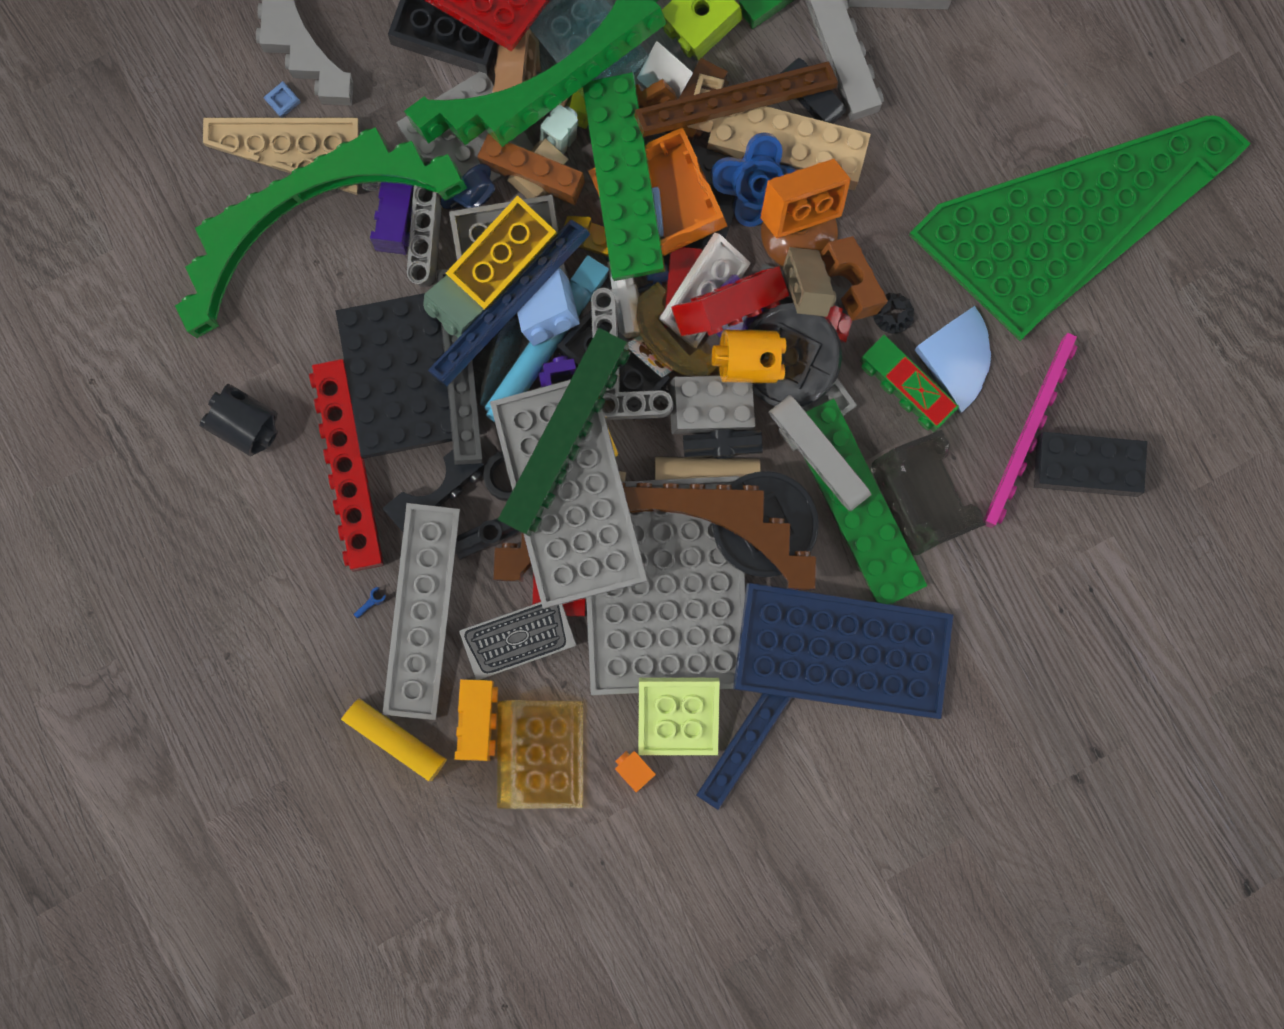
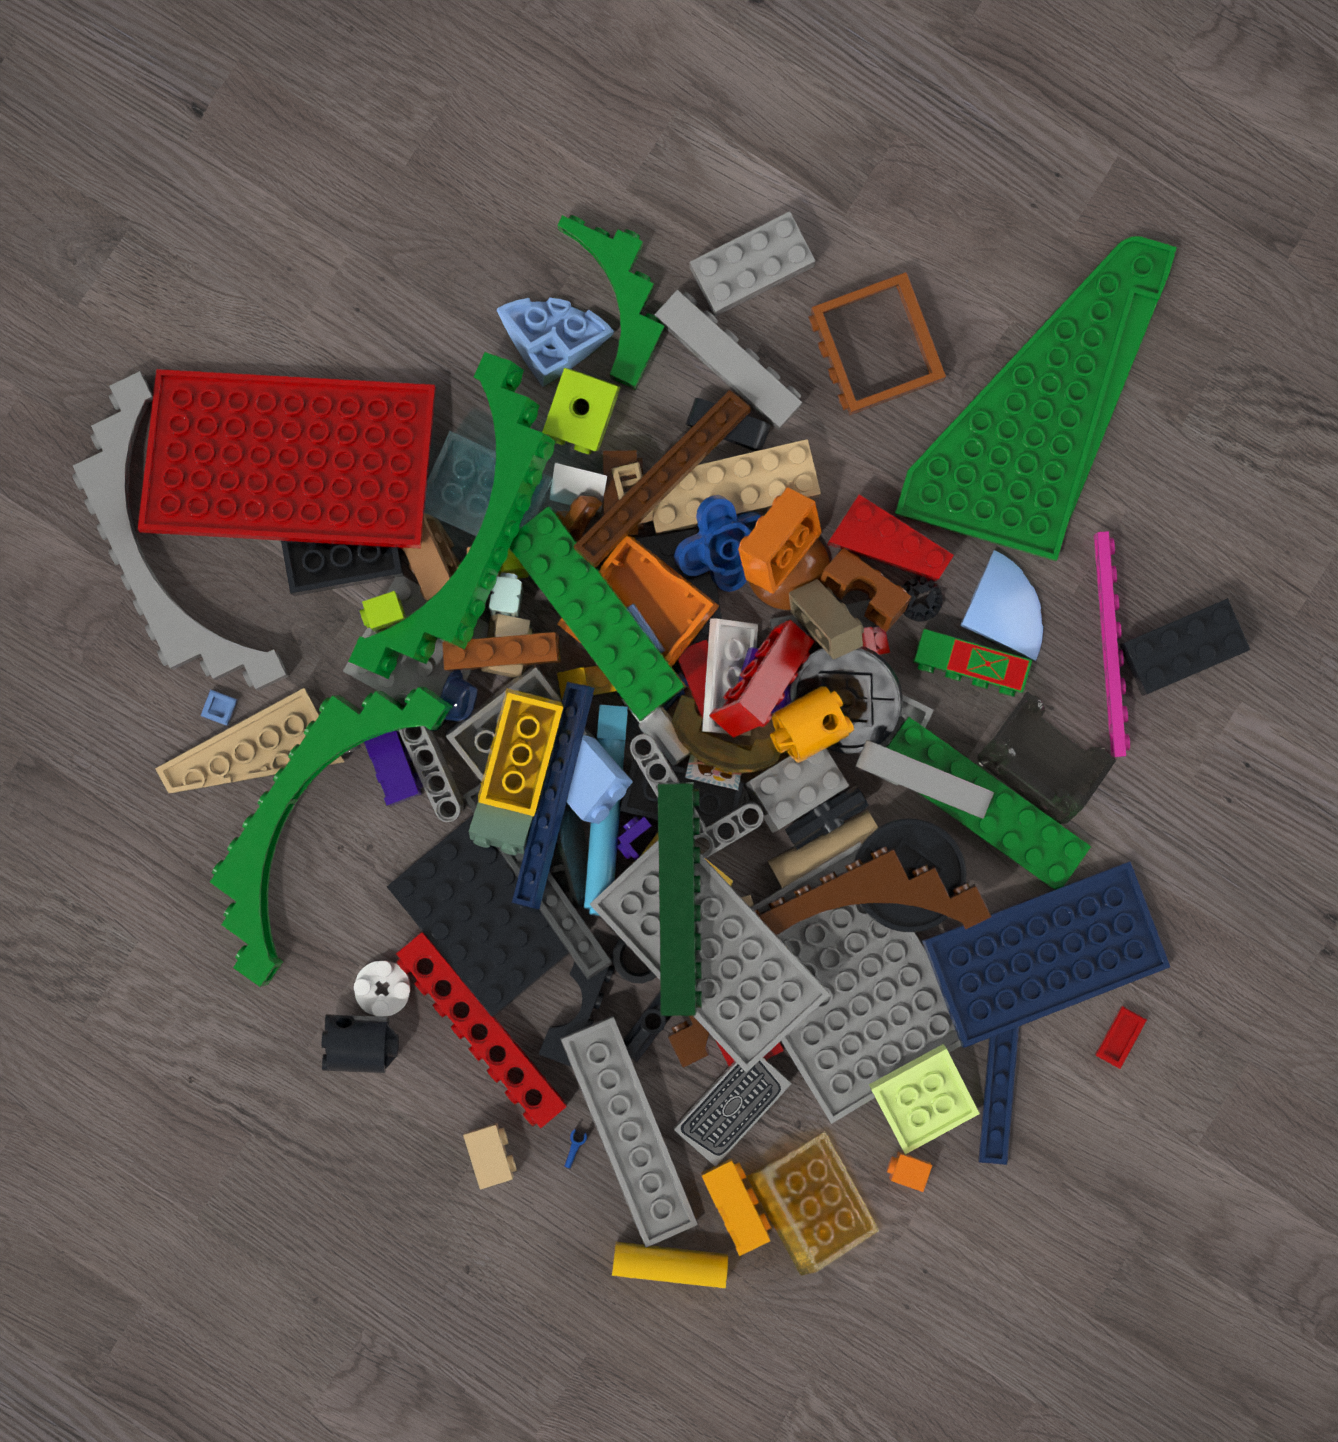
camera: 25 degrees left, 5 degrees up
(296, 570) = (489, 1155): none -> tan brick
(299, 398) = (380, 1004): none -> white plate
(453, 83) = (382, 612): none -> lime brick
(868, 756) = (1120, 1037): none -> red tile
(893, 251) = (882, 537): none -> red wedge
(957, 137) = (920, 330): none -> dark orange window

